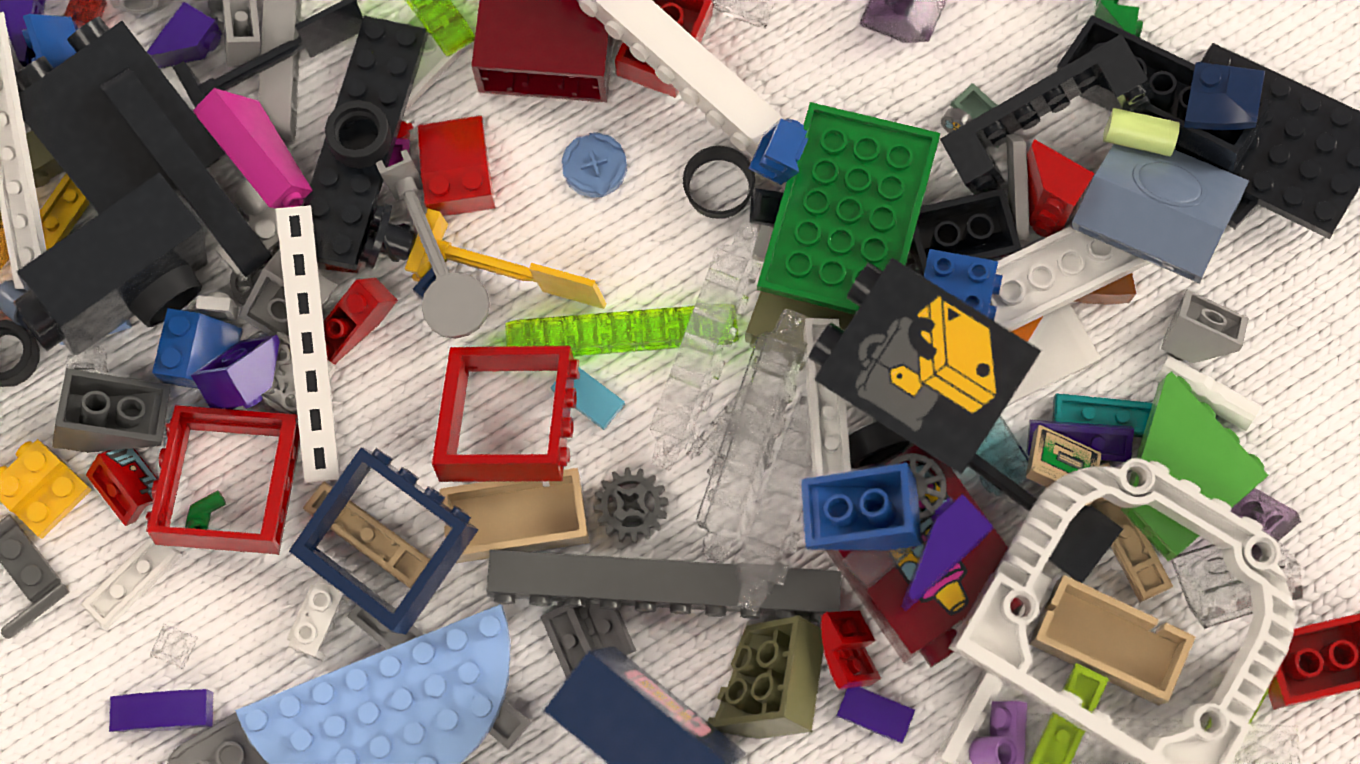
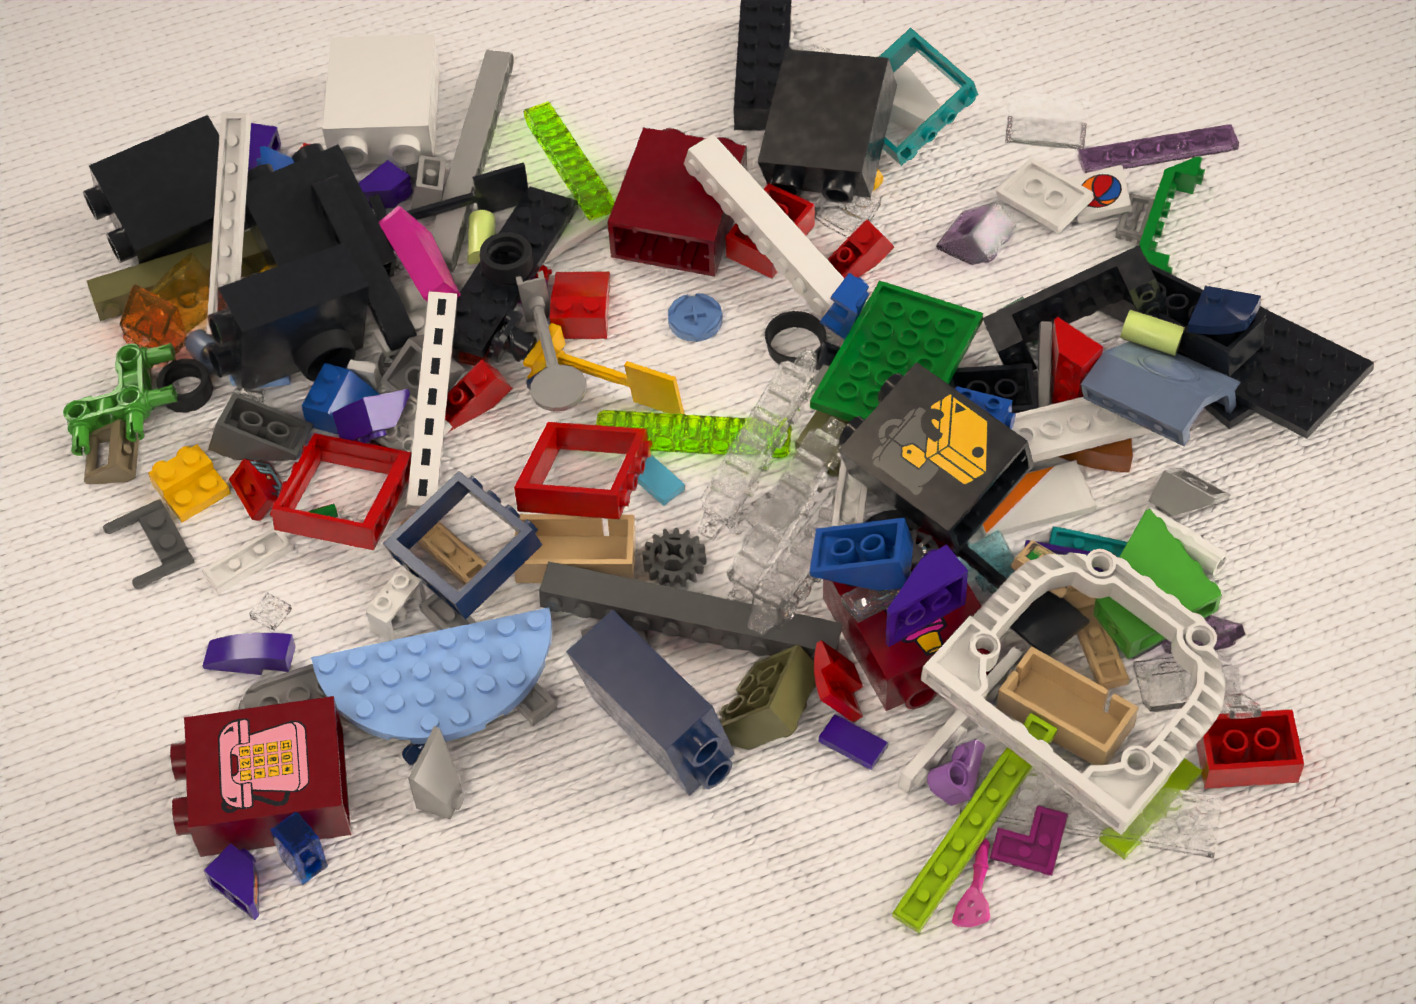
camera: 10 degrees right, 20 degrees down
(318, 89) = (480, 227): none -> yellowish green brick
(772, 52) = (861, 251): none -> red slope
(1312, 622) = (1240, 706): none -> clear tile

